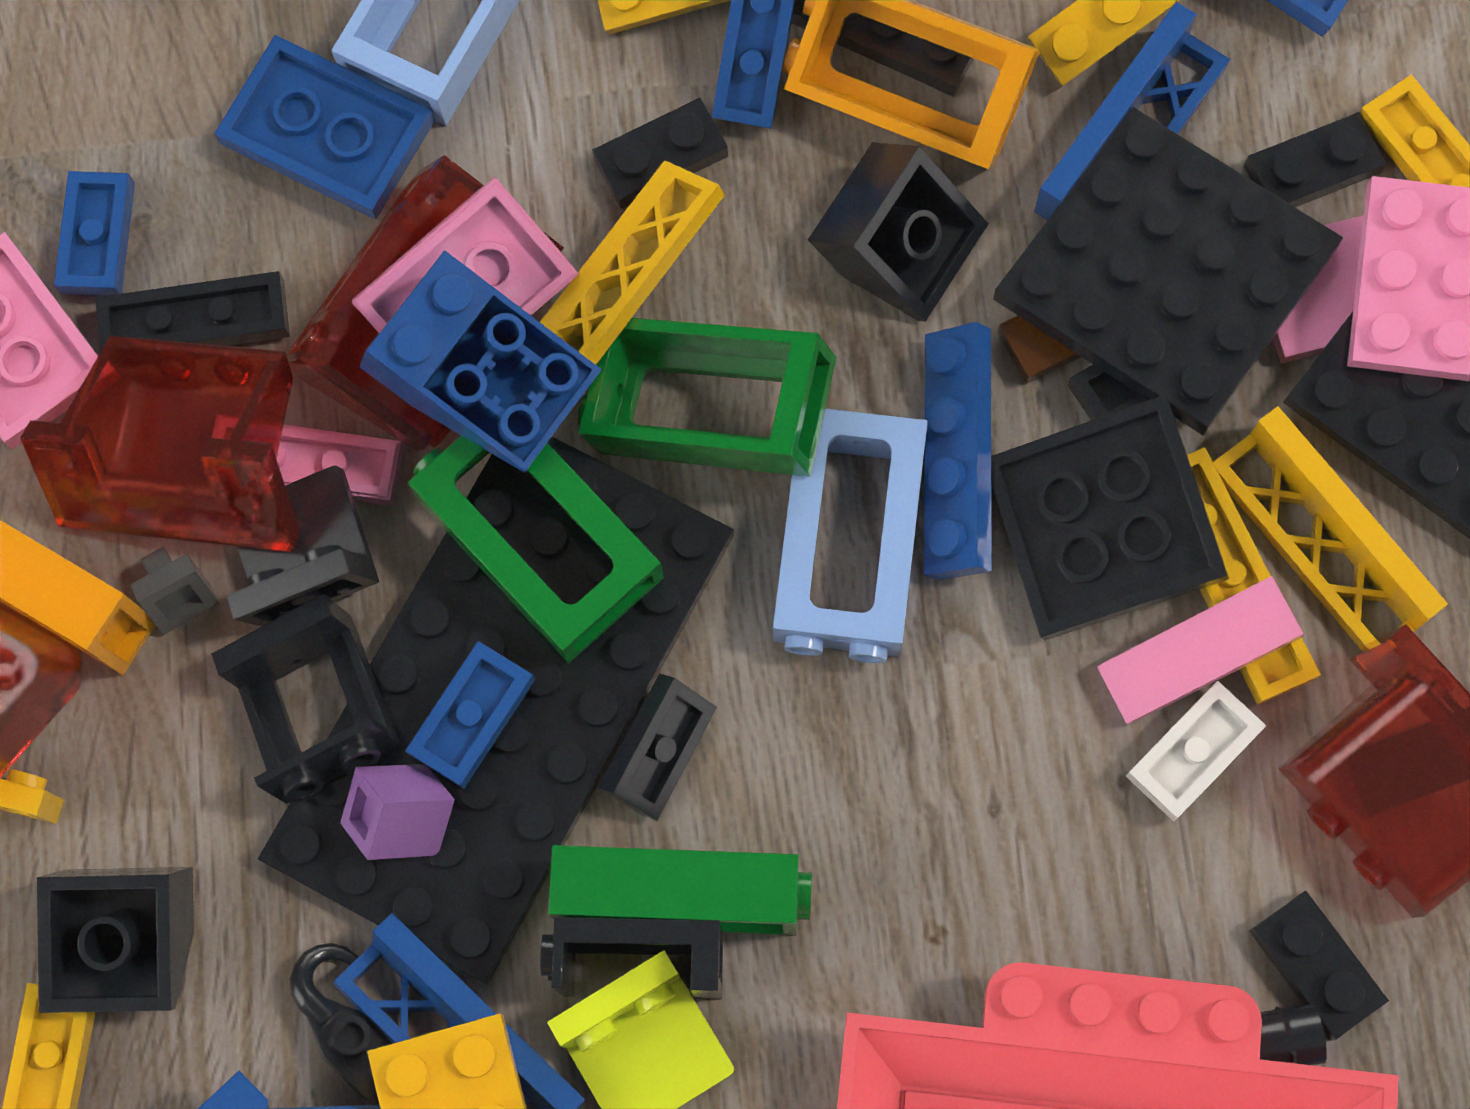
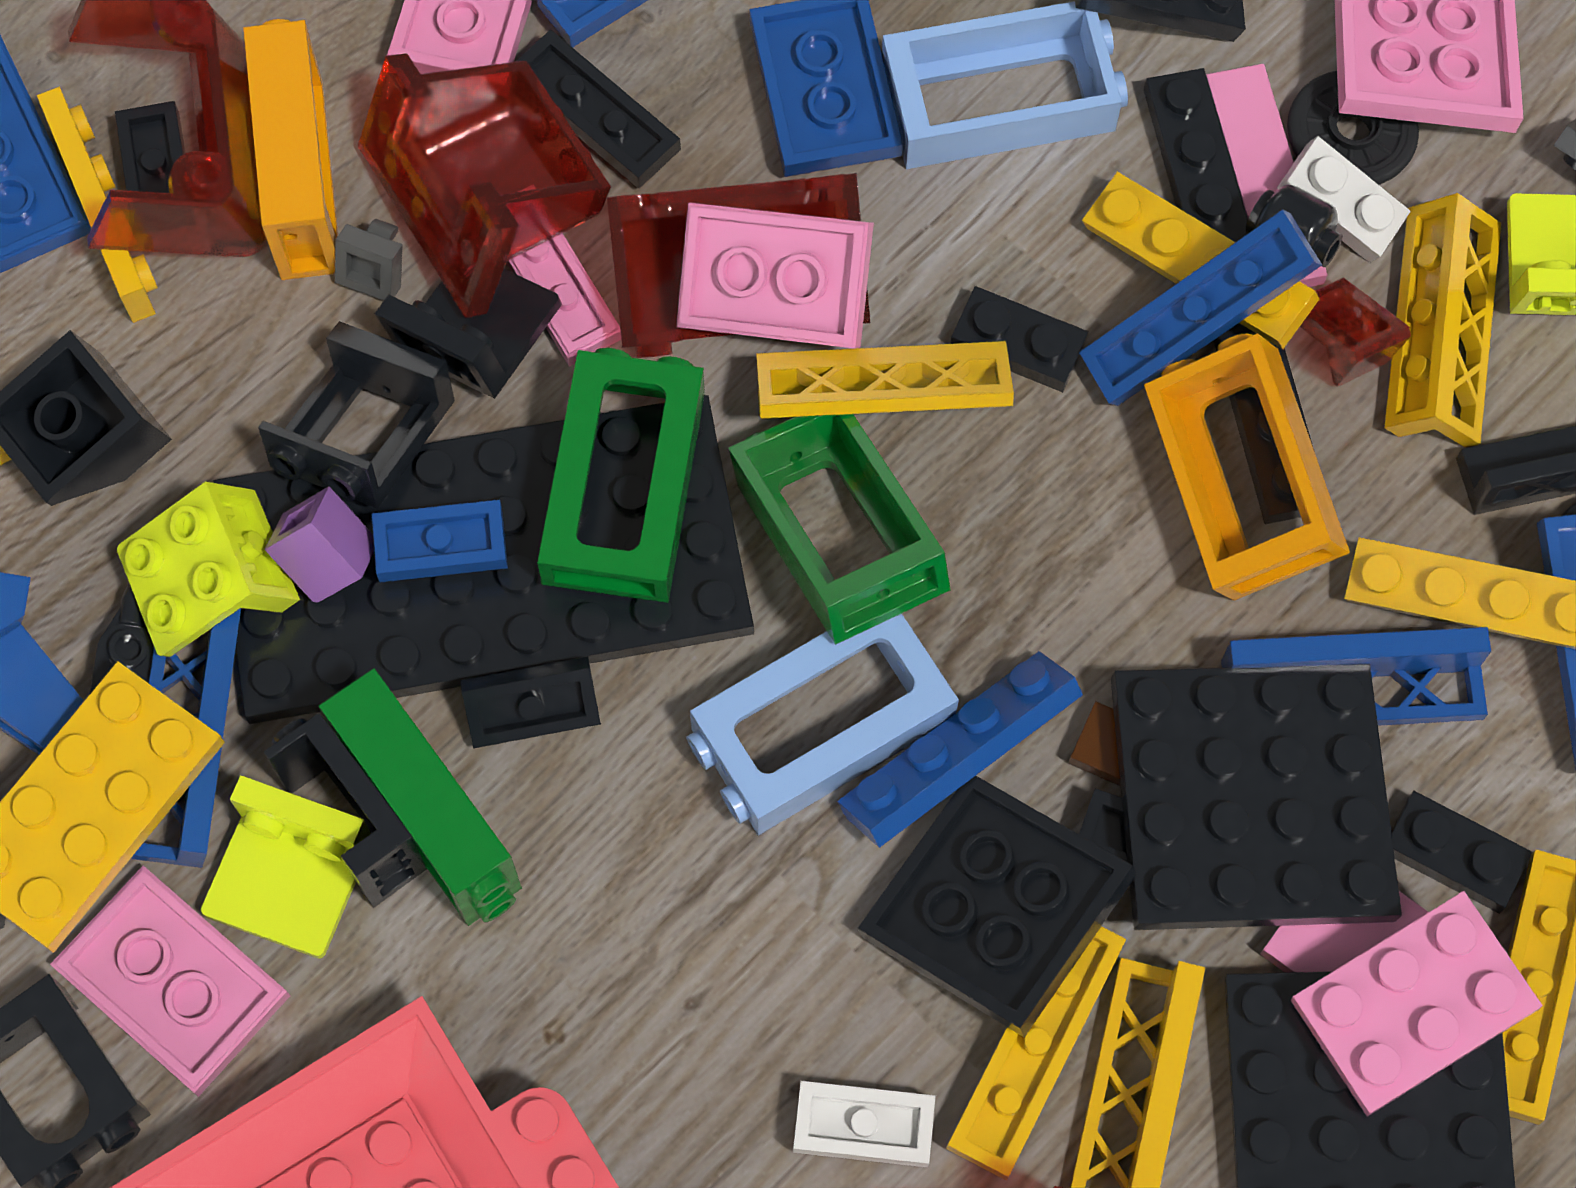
camera: 45 degrees right, 5 degrees down
(335, 922) = (203, 565): none -> neon yellow bracket
(479, 364) = (710, 325): blue slope -> none
(899, 228) = (1108, 564): black slope -> none
(1200, 650) = (949, 1062): bright pink tile -> none

